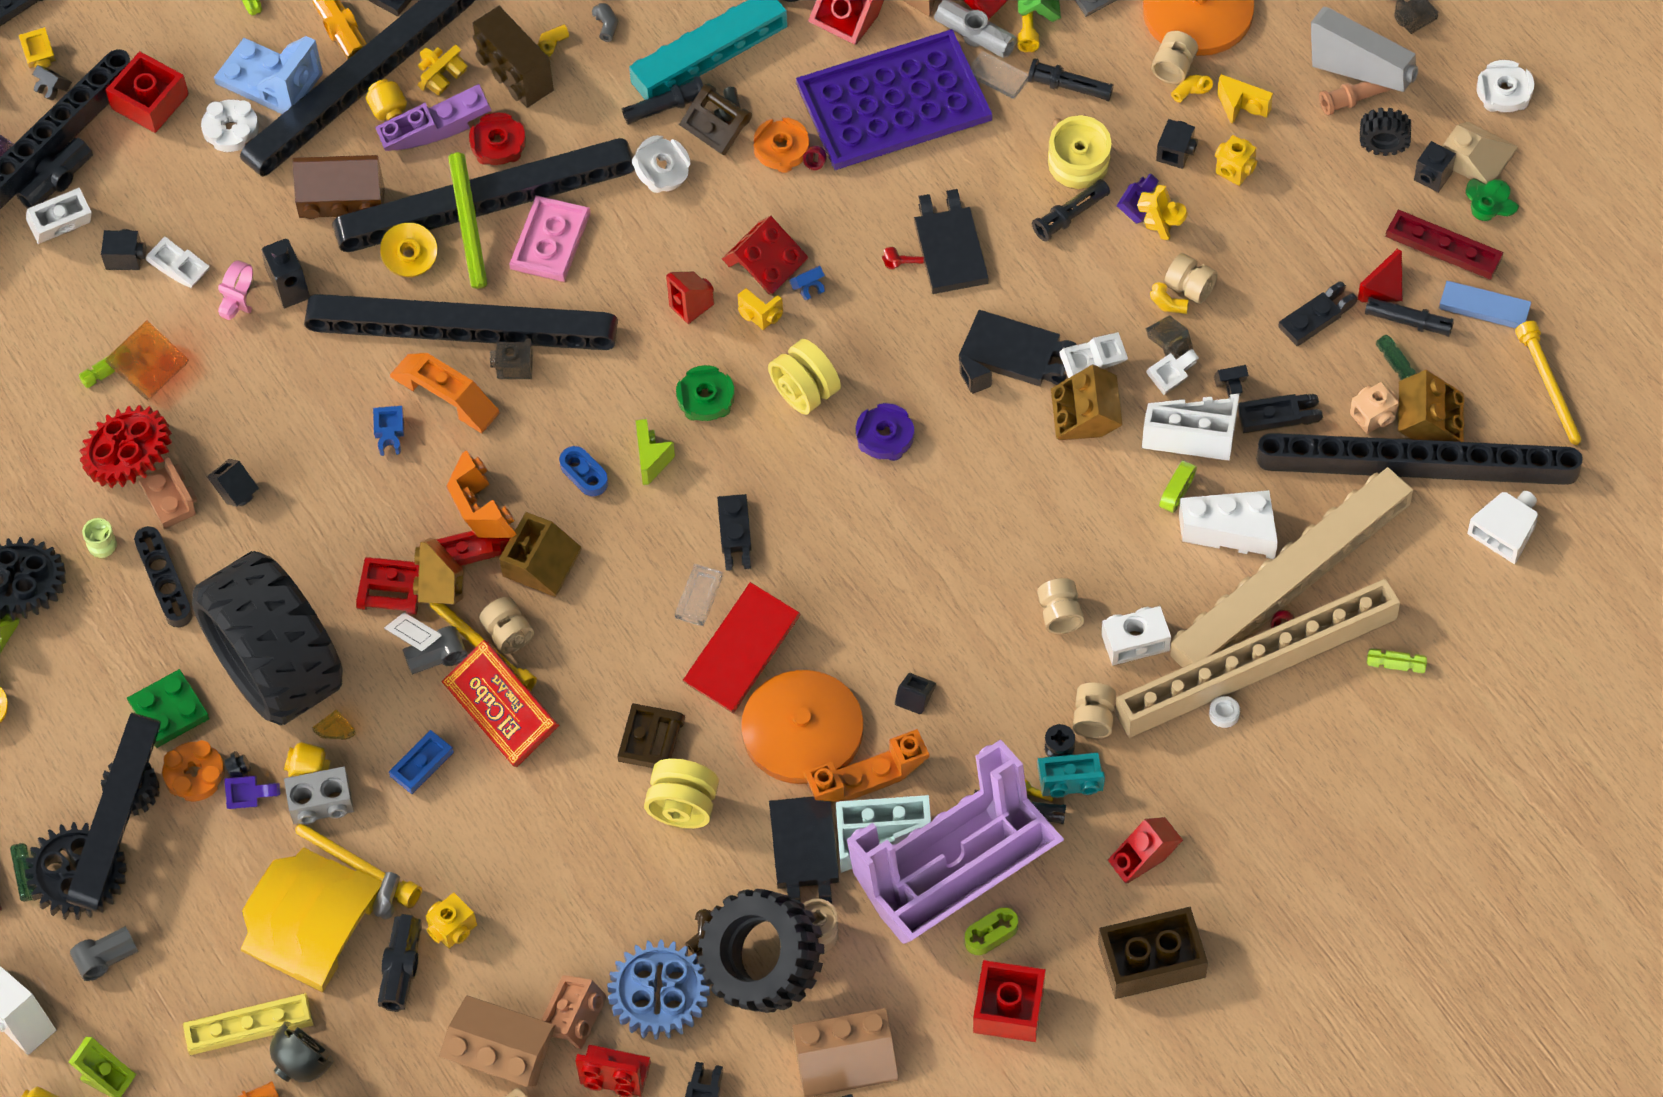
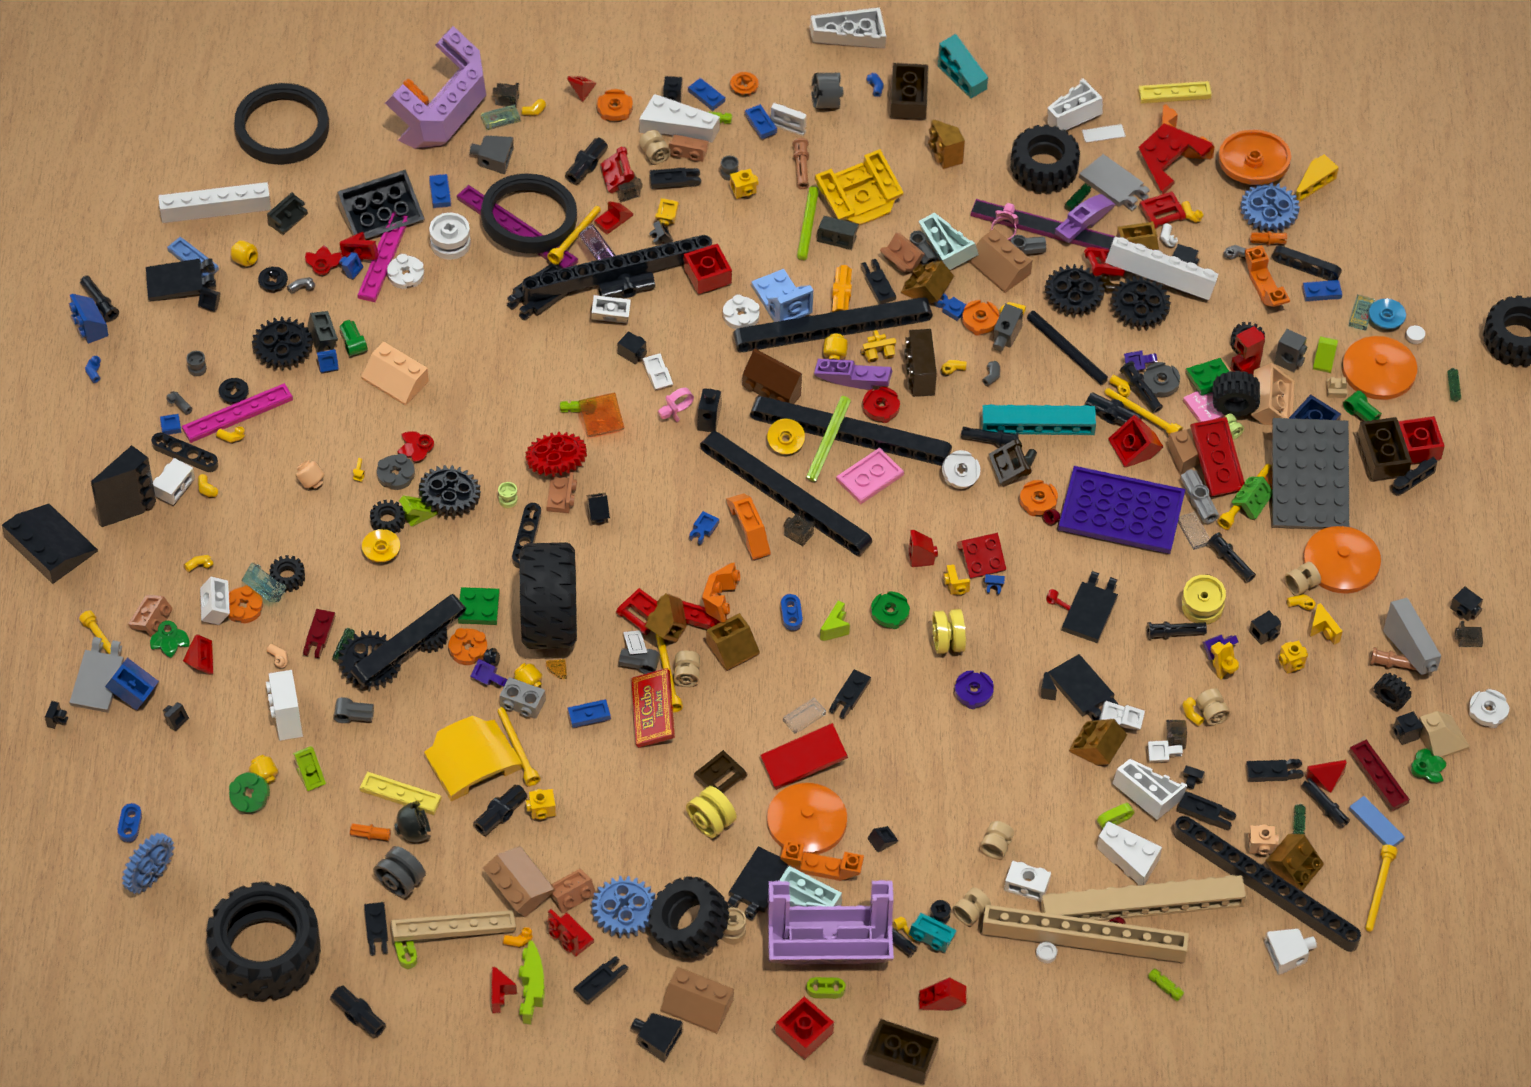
camera: 30 degrees right, 5 degrees down
(383, 903) = (513, 774): flat silver arm -> none

